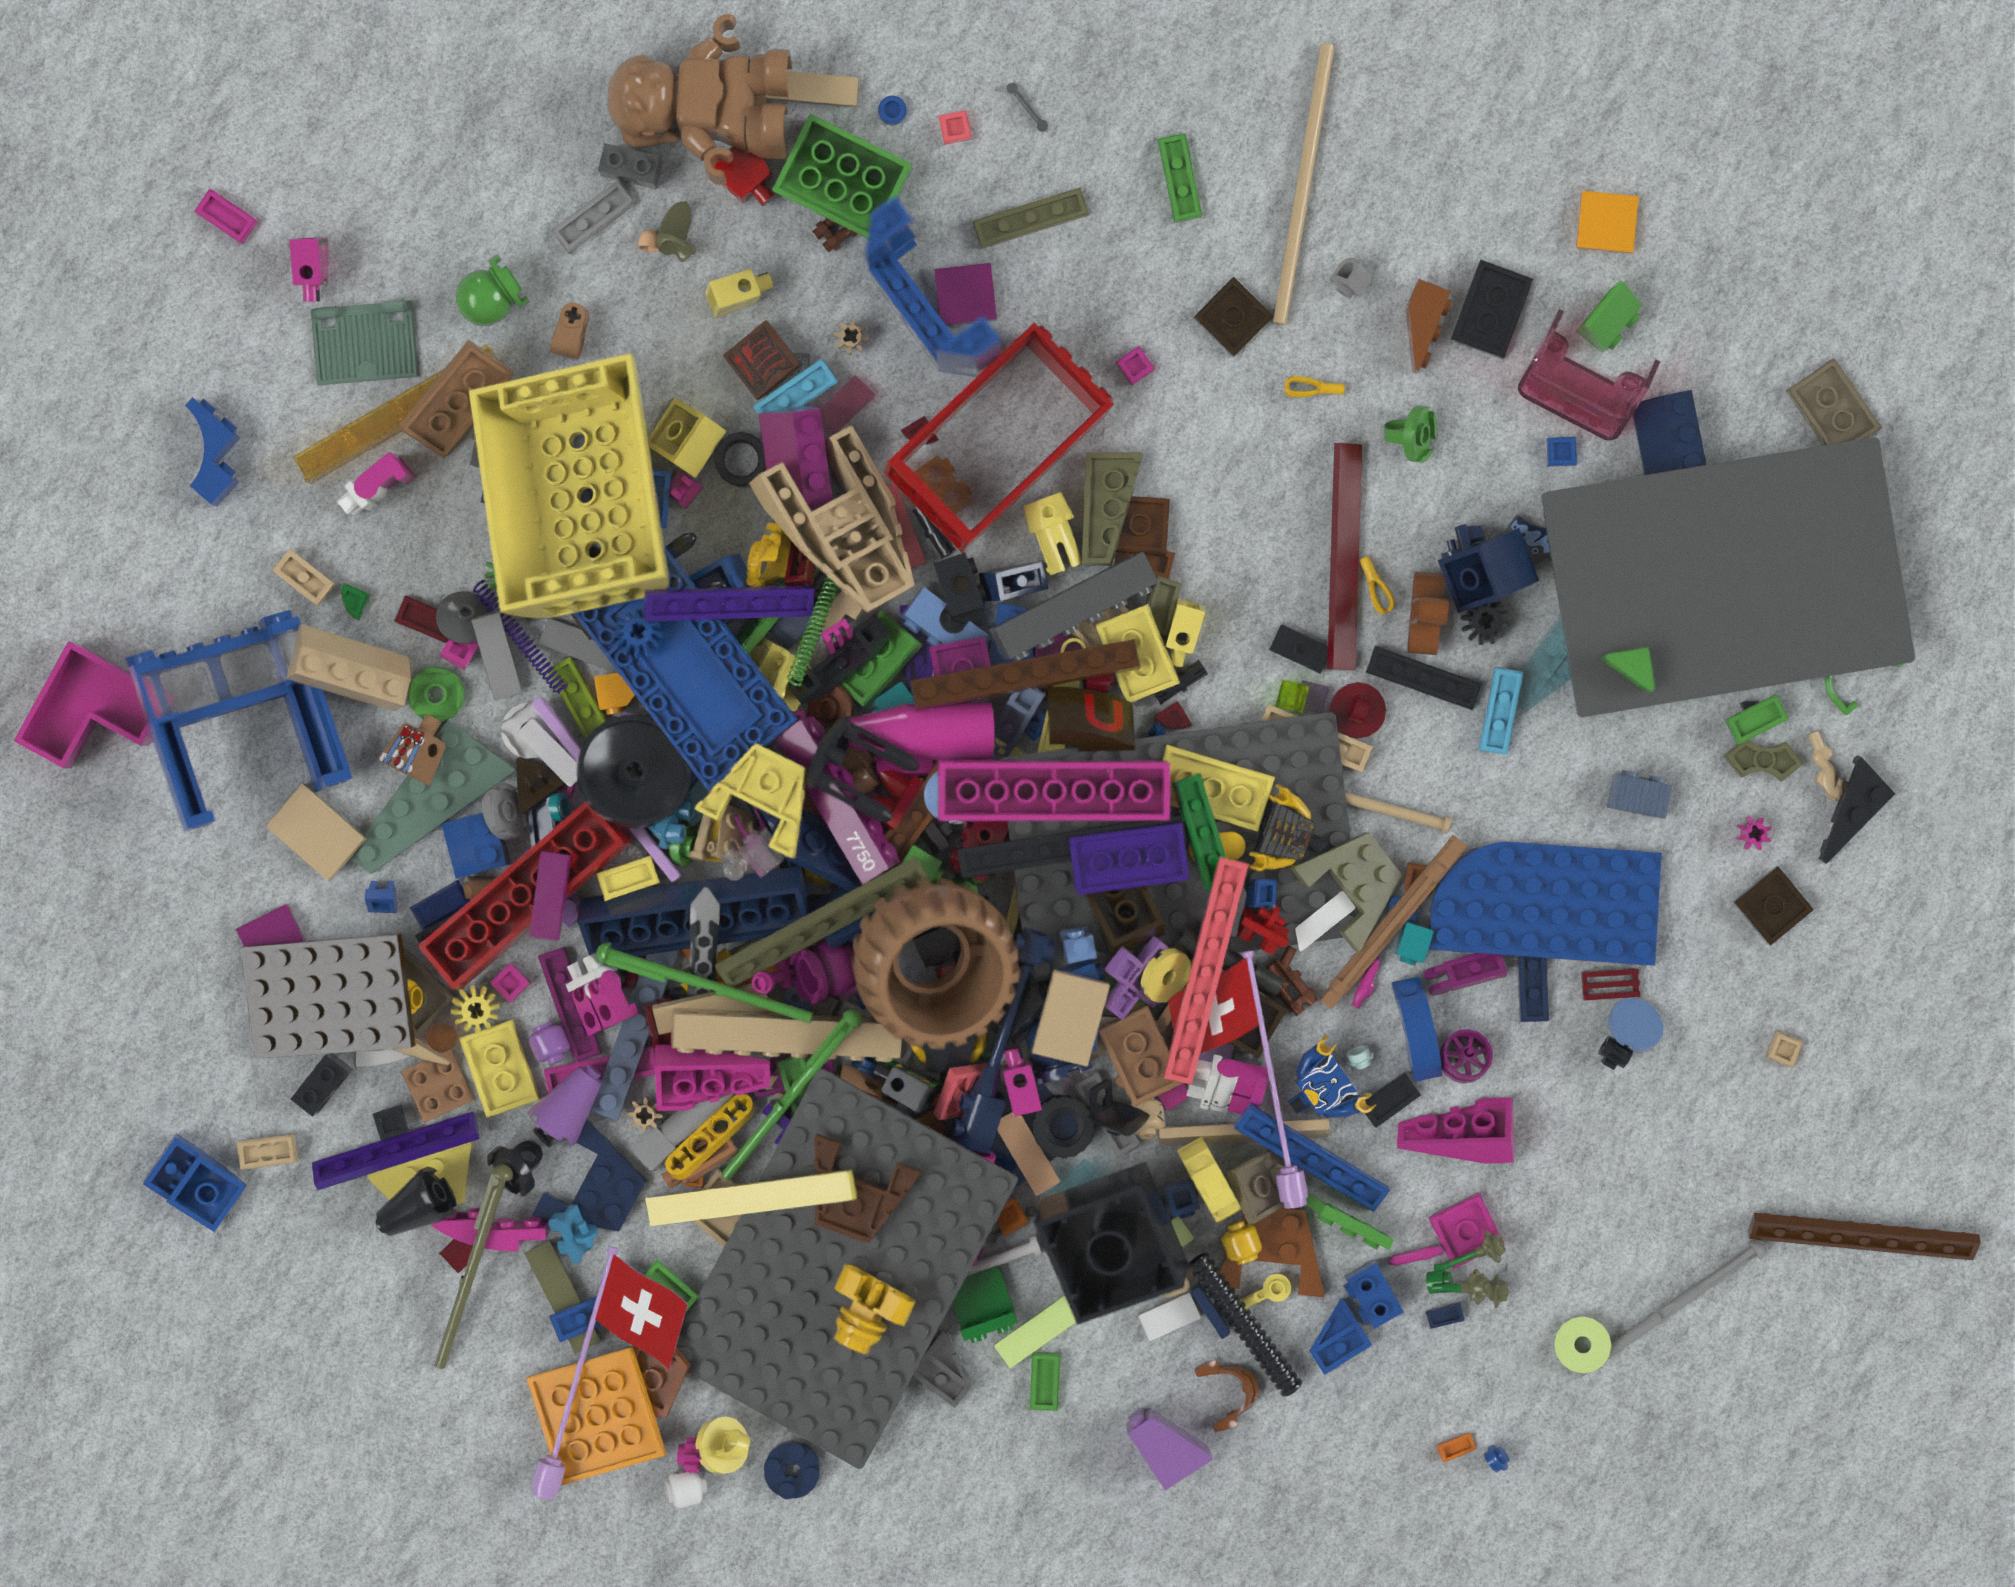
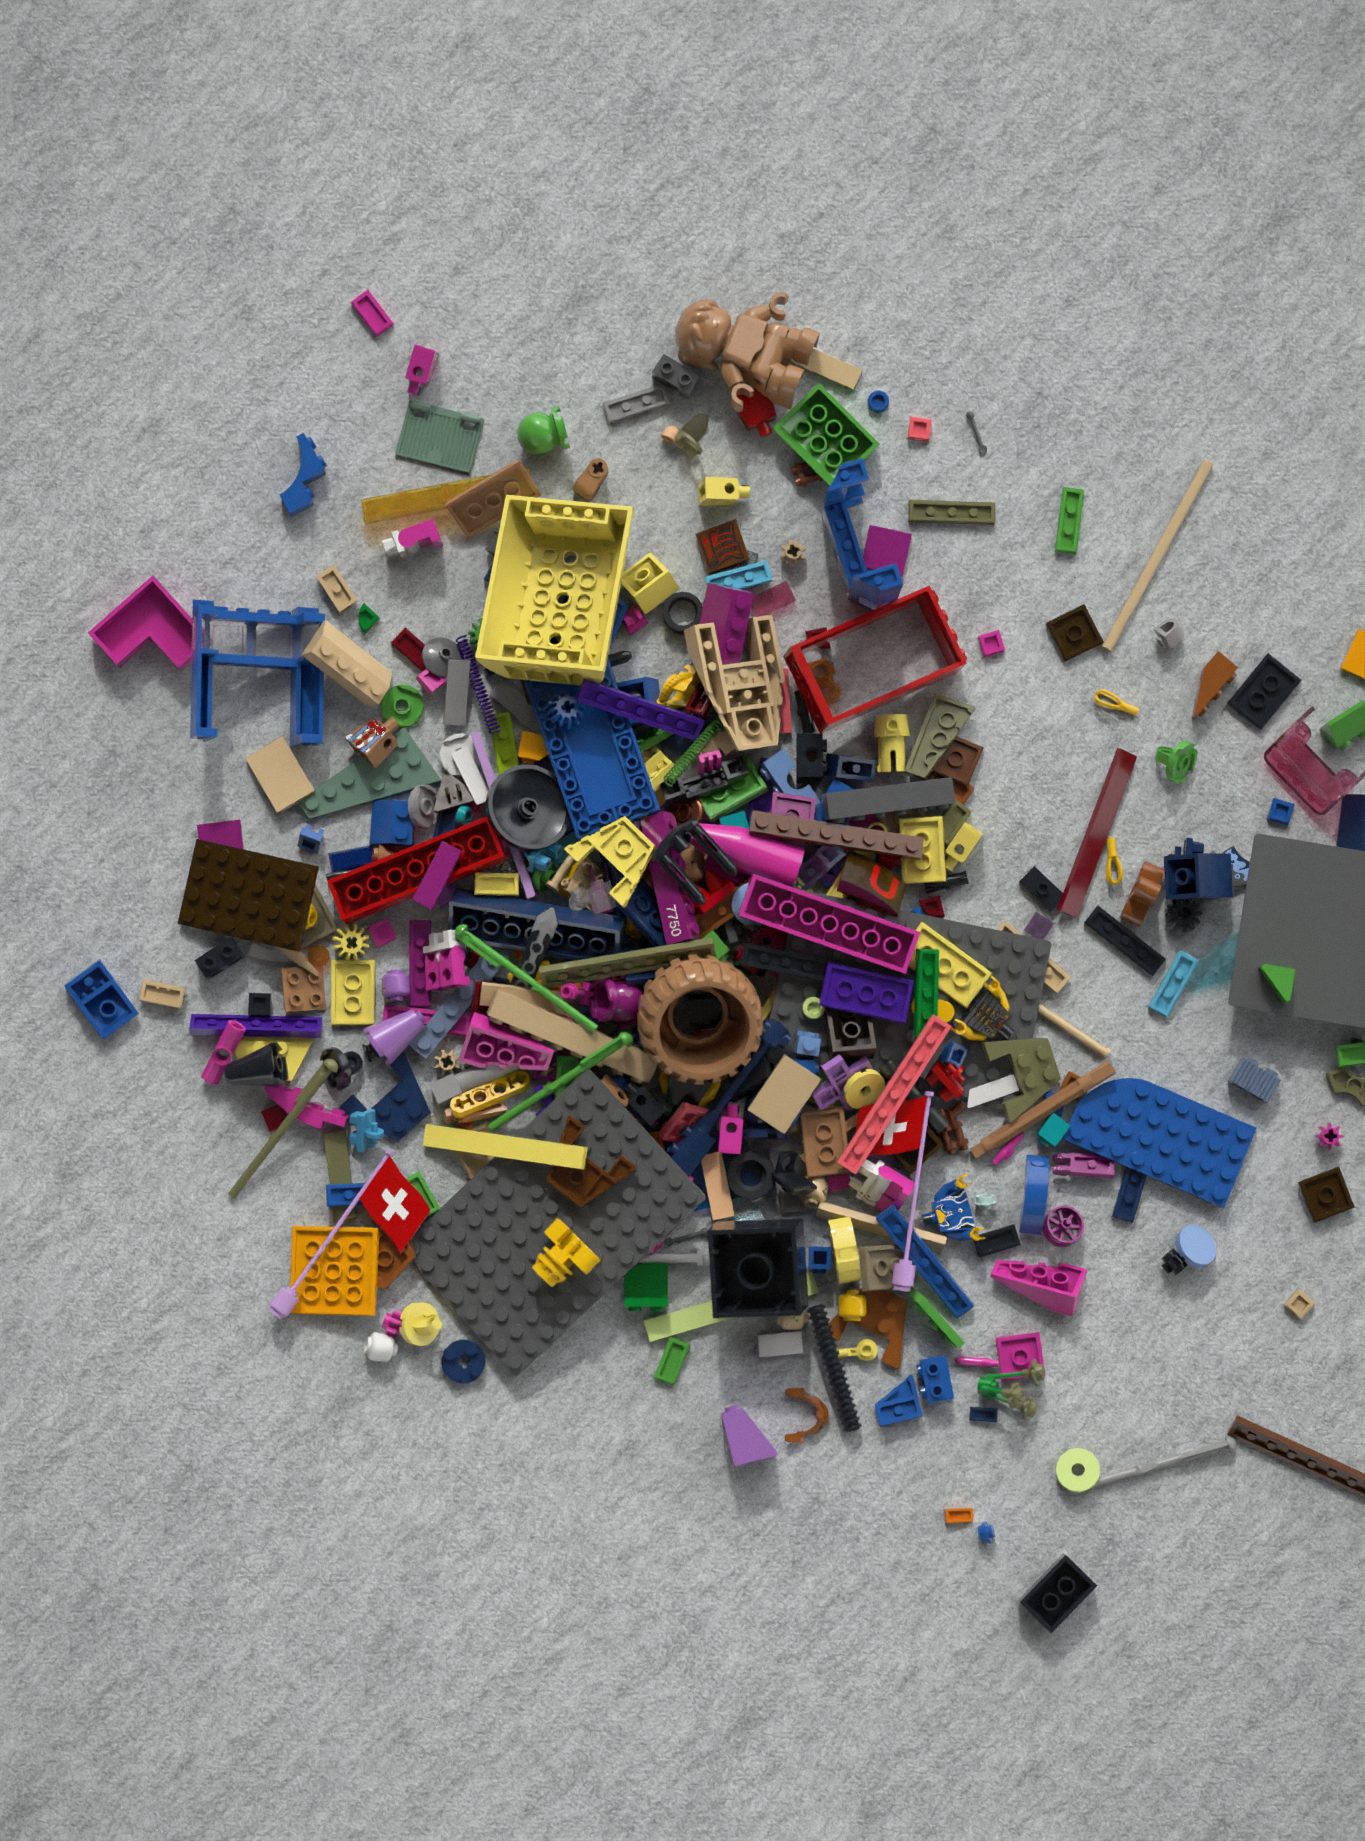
camera: 15 degrees right, 5 degrees down
(366, 1186) = (218, 1063): none -> dark pink piece
(943, 1371) = (600, 1326): flat silver wing -> none
(1012, 1217) = (688, 1230): orange tile -> none
(1067, 899) = (811, 1008): none -> yellowish green tile
(1210, 1310) = (812, 1350): dark blue tile -> none
(1292, 696) = (1024, 920): clear neon green tile -> none
(1358, 710) = (1069, 947): dark red tile -> none
(1607, 1503) = (1057, 1593): none -> black brick
(1635, 983) = (1205, 1216): dark red tile -> none

